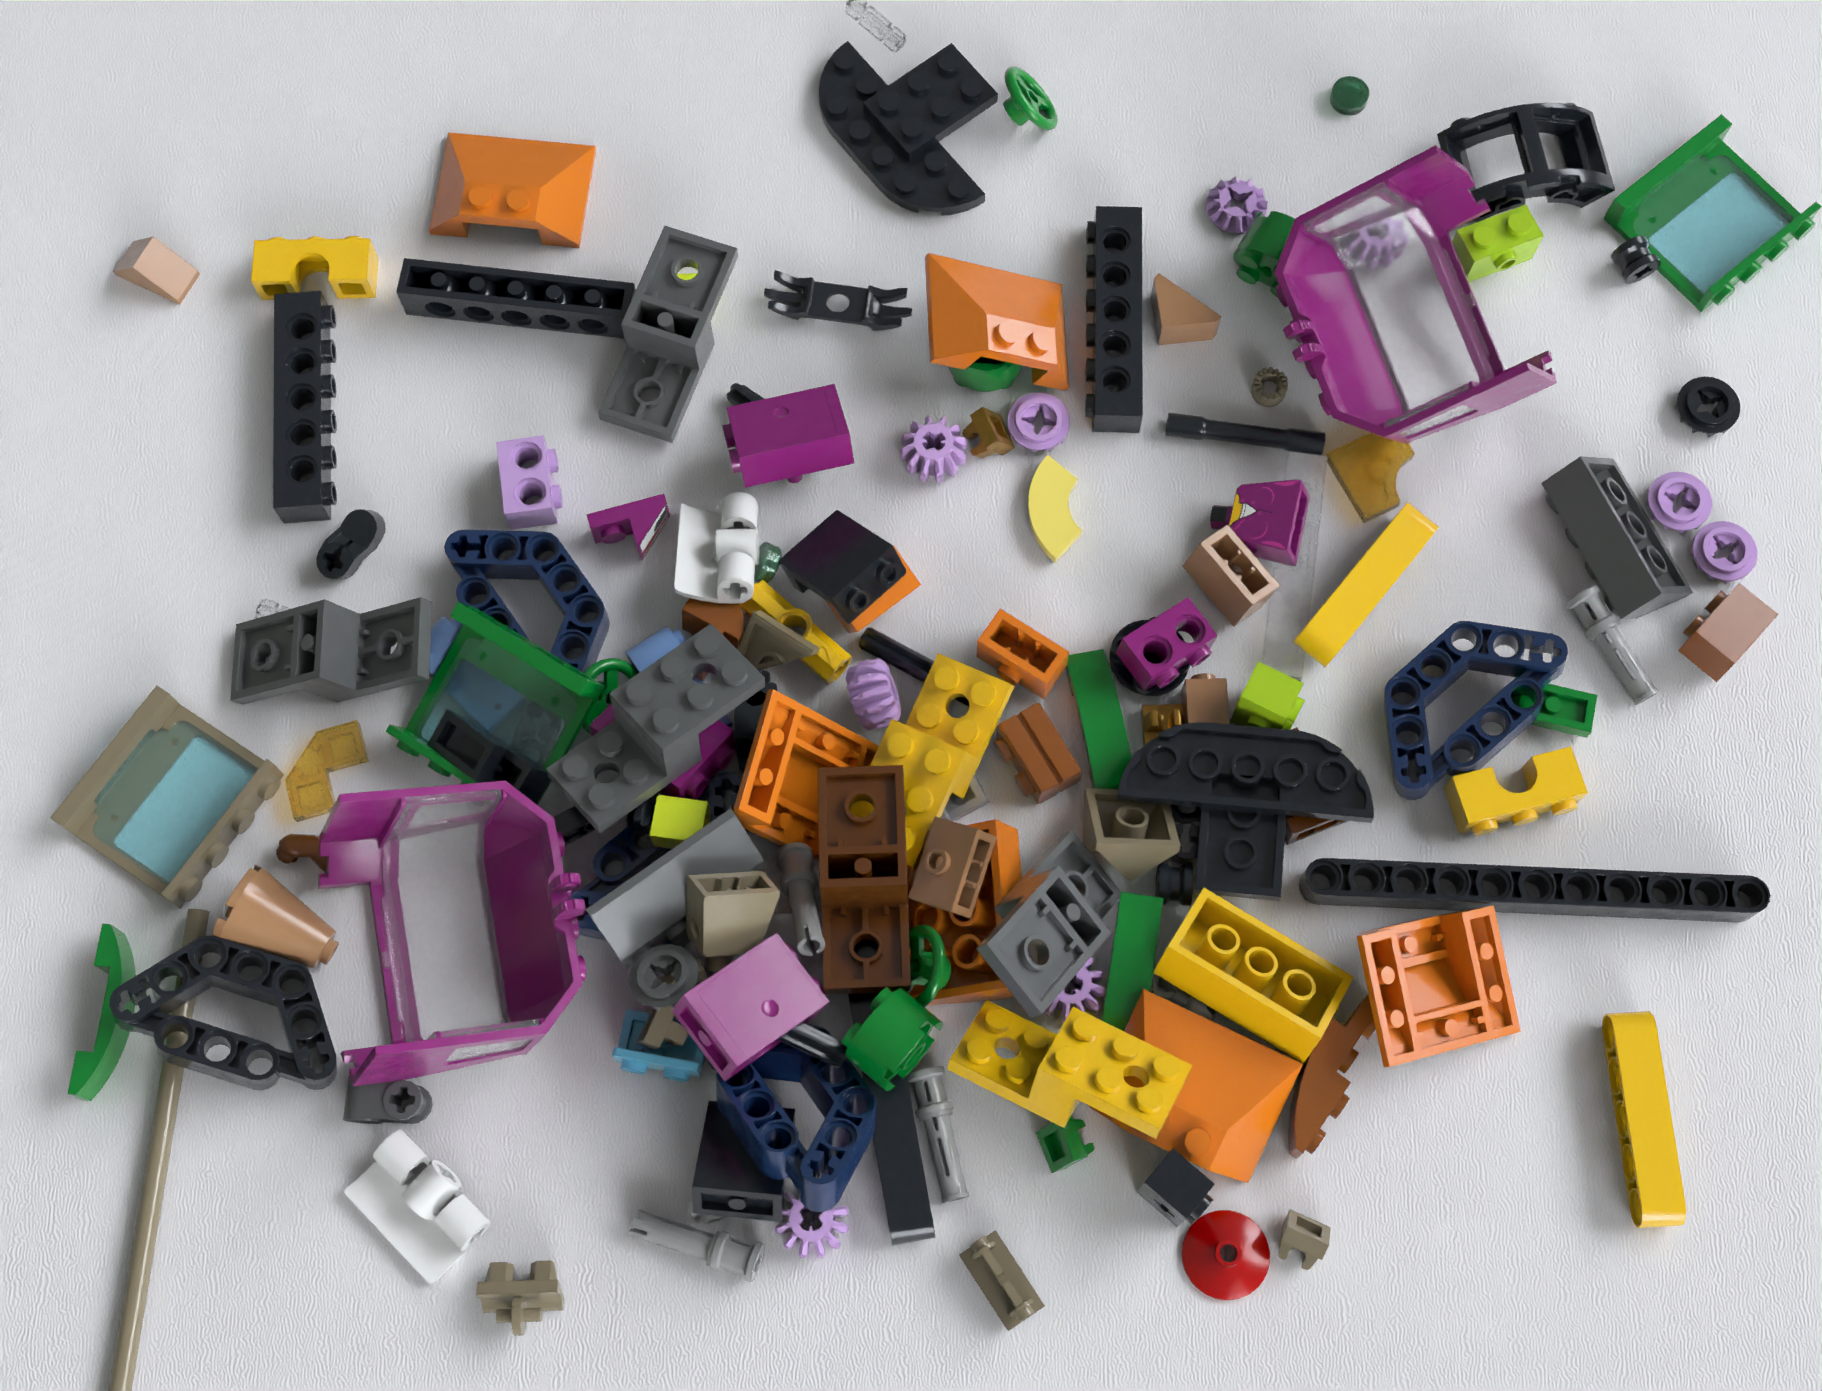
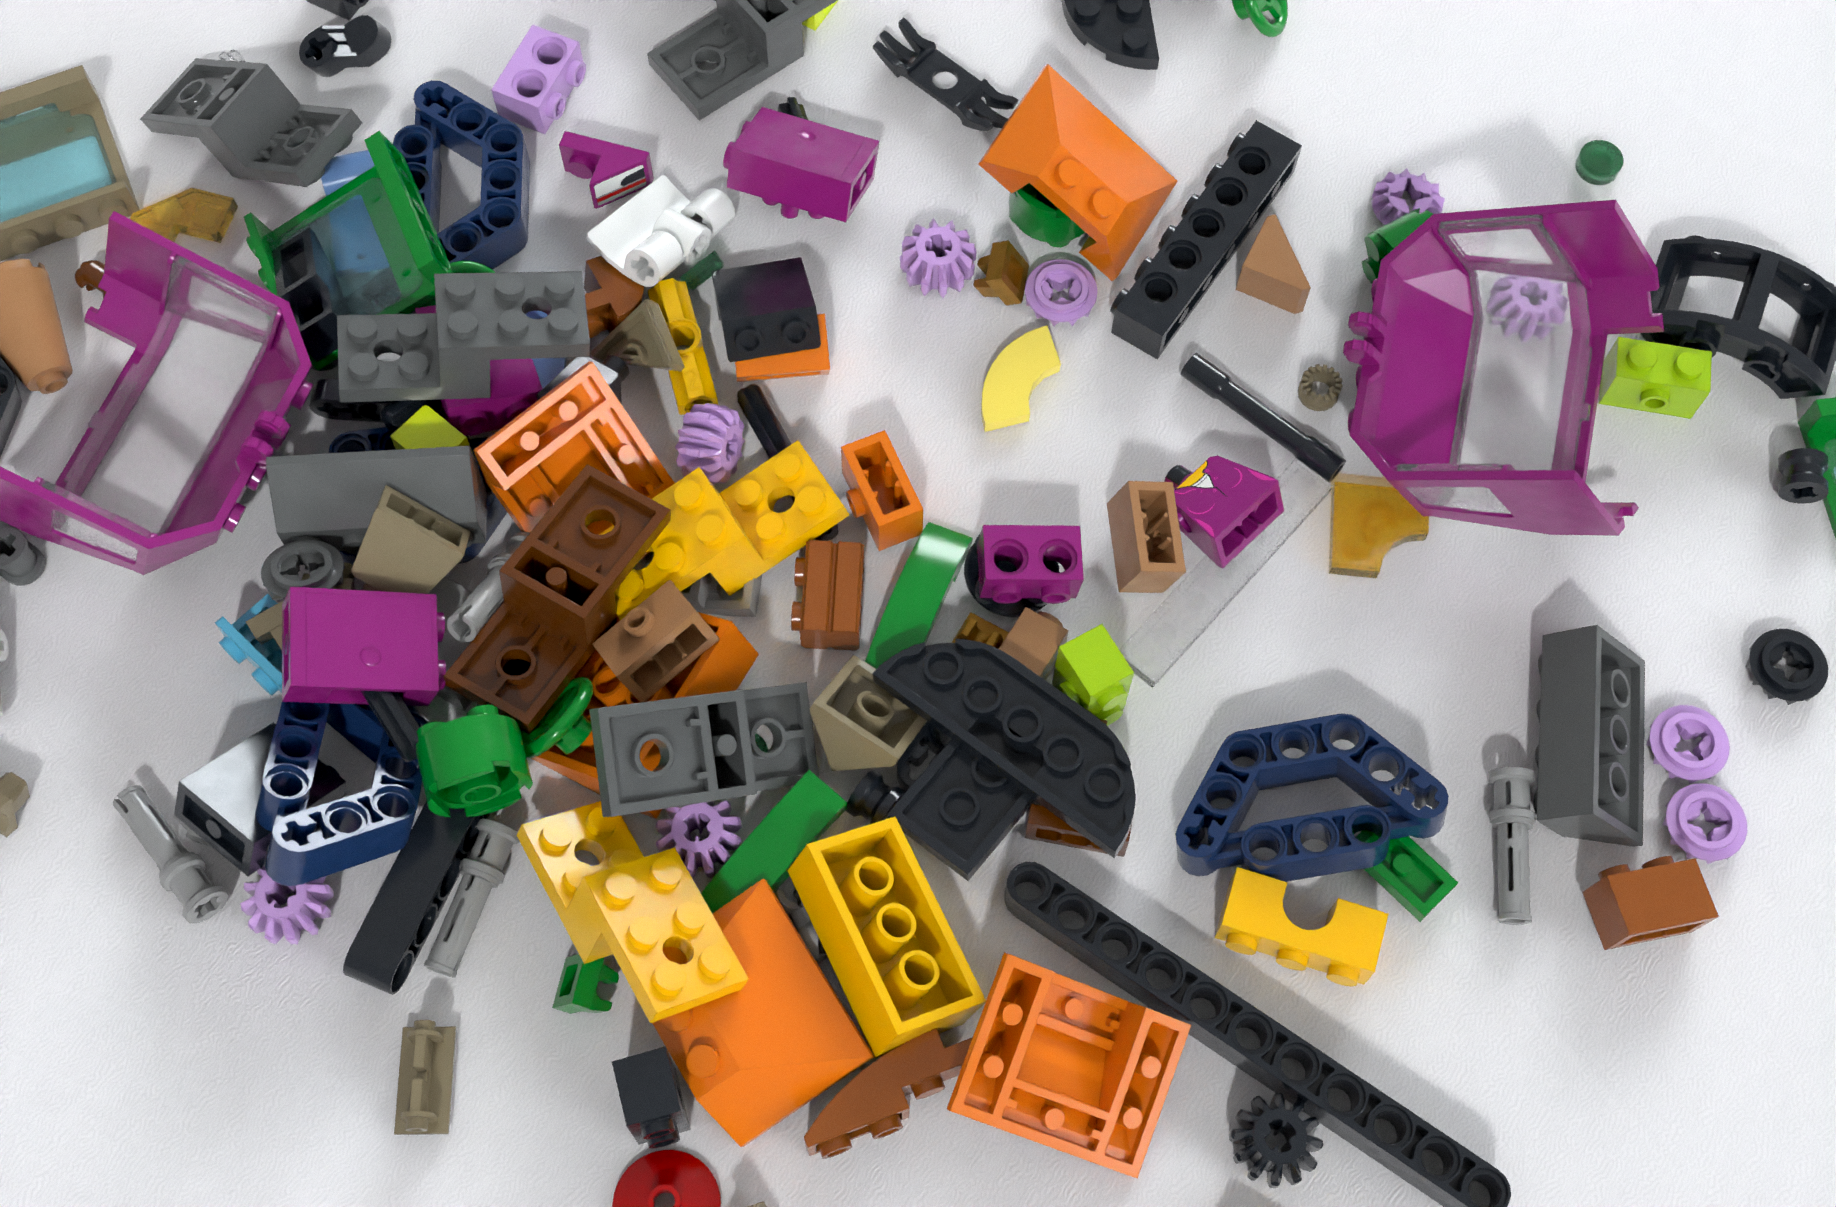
camera: 30 degrees right, 5 degrees down
(1366, 584) = (1282, 627): yellow beam -> none
(1609, 947) = (1293, 1153): none -> black gear

